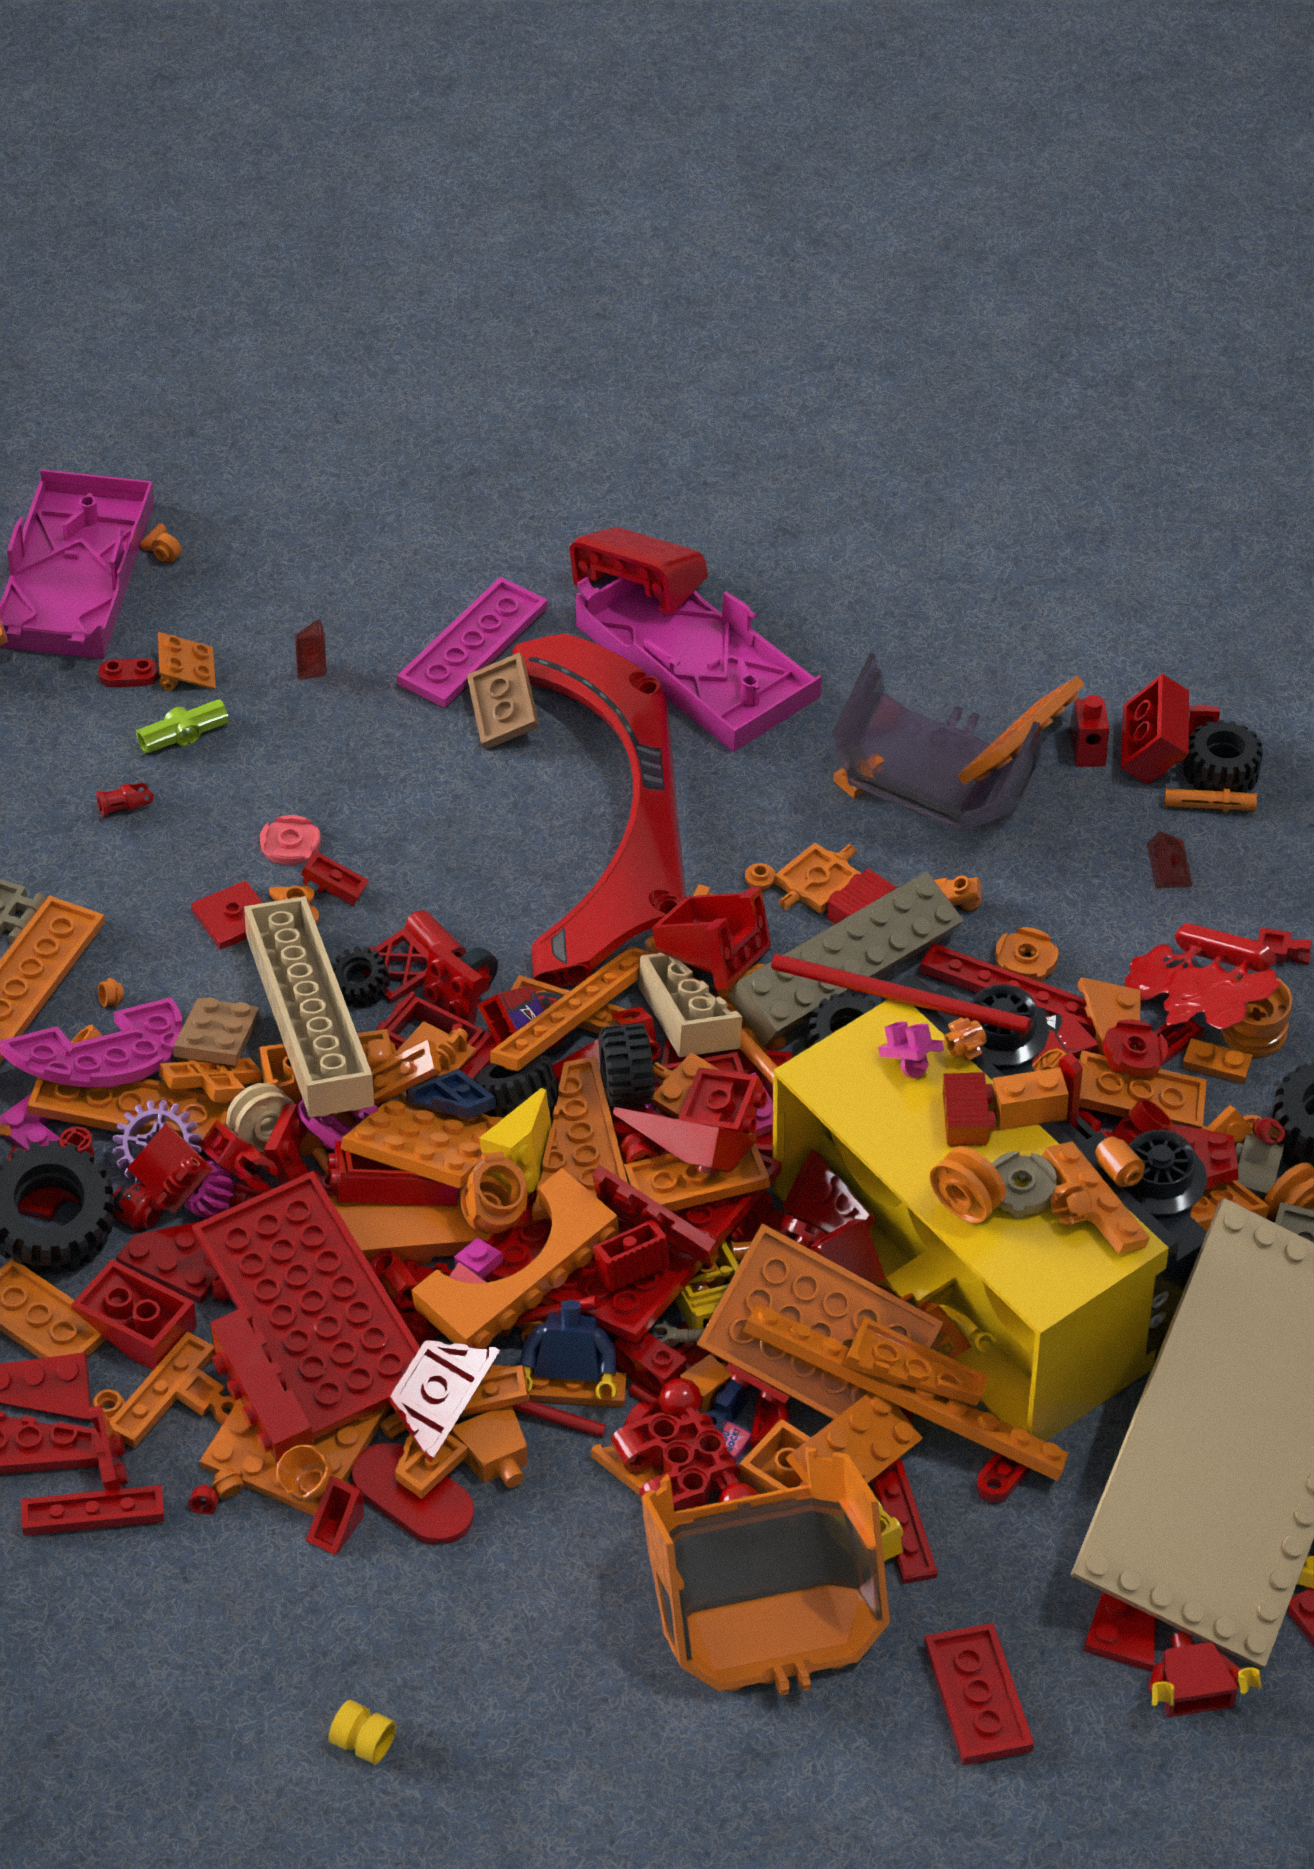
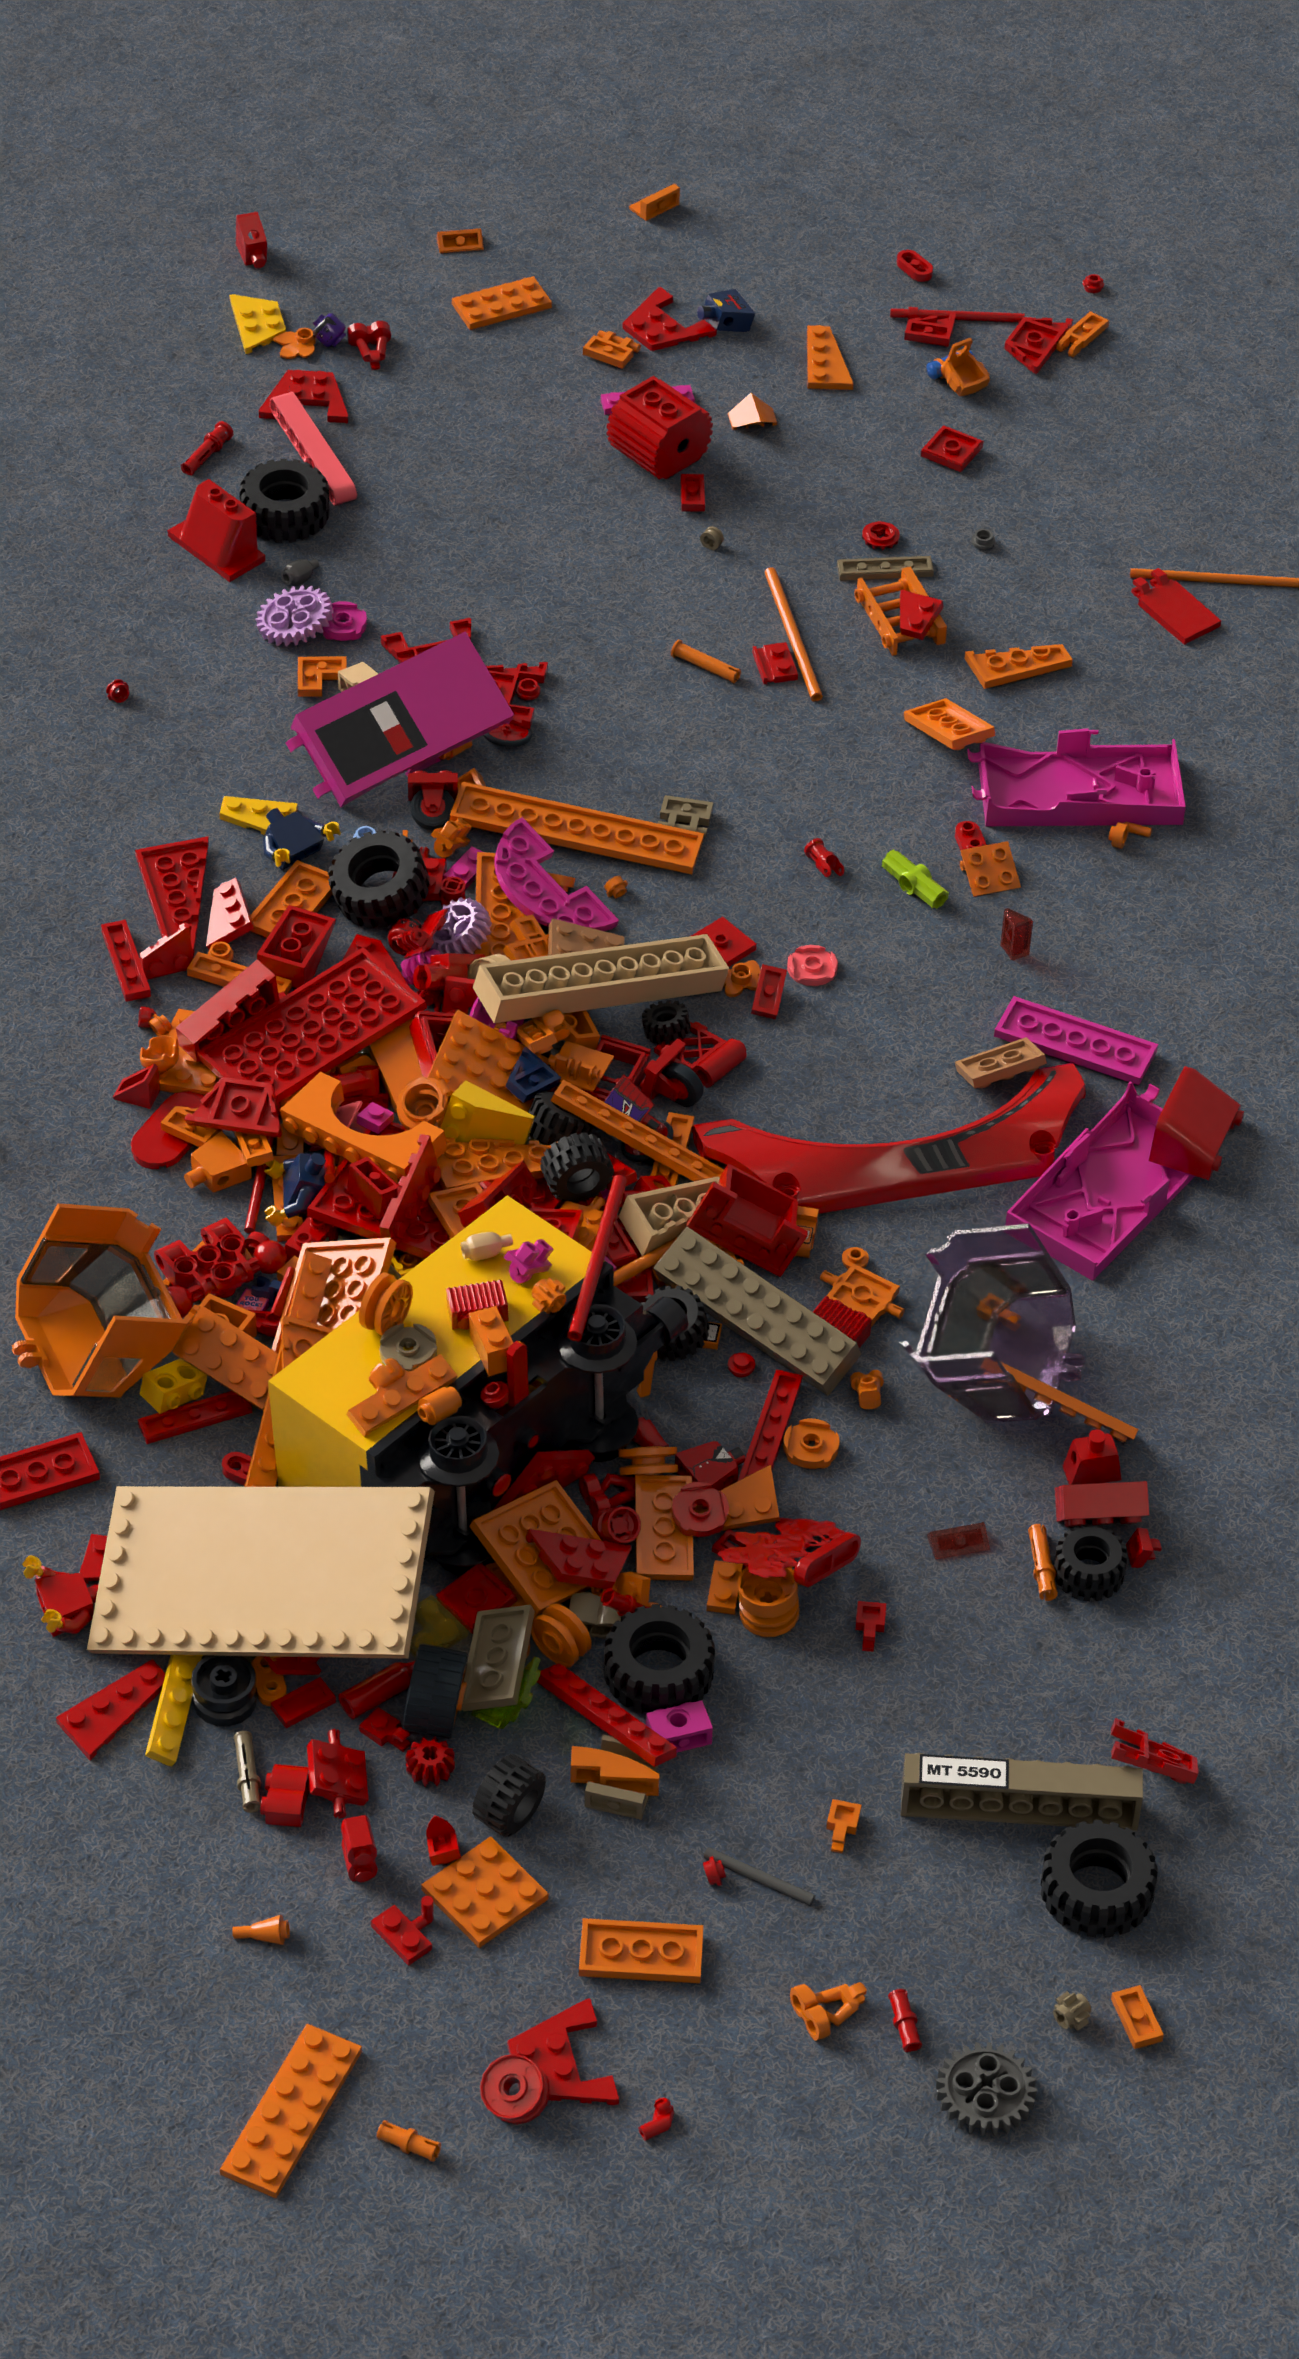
camera: 80 degrees right, 0 degrees up
(868, 1092) = (484, 1245): none -> tan plant
(1083, 1133) = (495, 1394): none -> red plate

